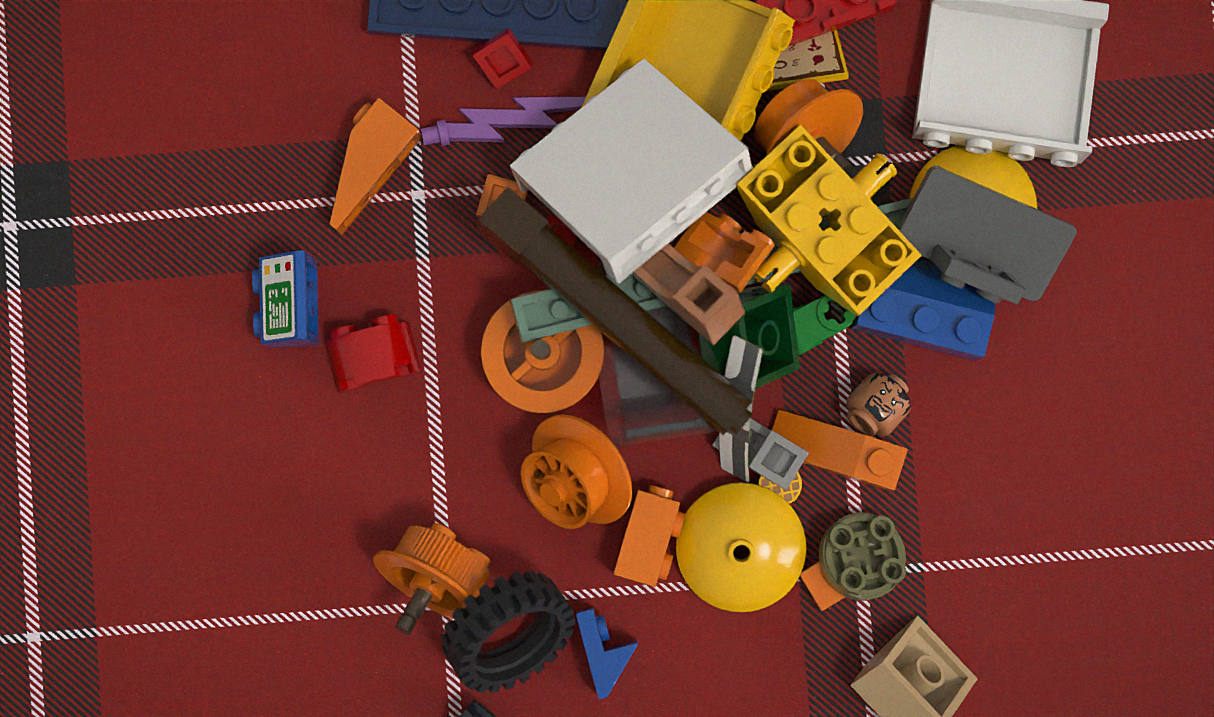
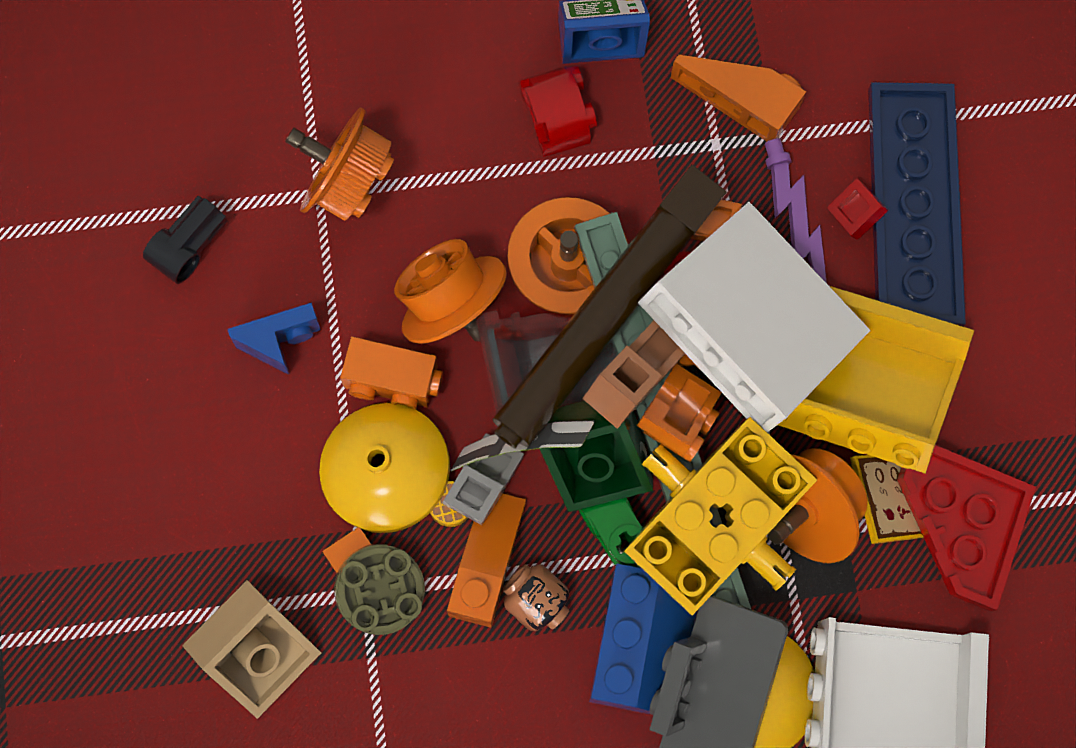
camera: 85 degrees right, 10 degrees down
(494, 609) = (319, 225): black tyre -> none

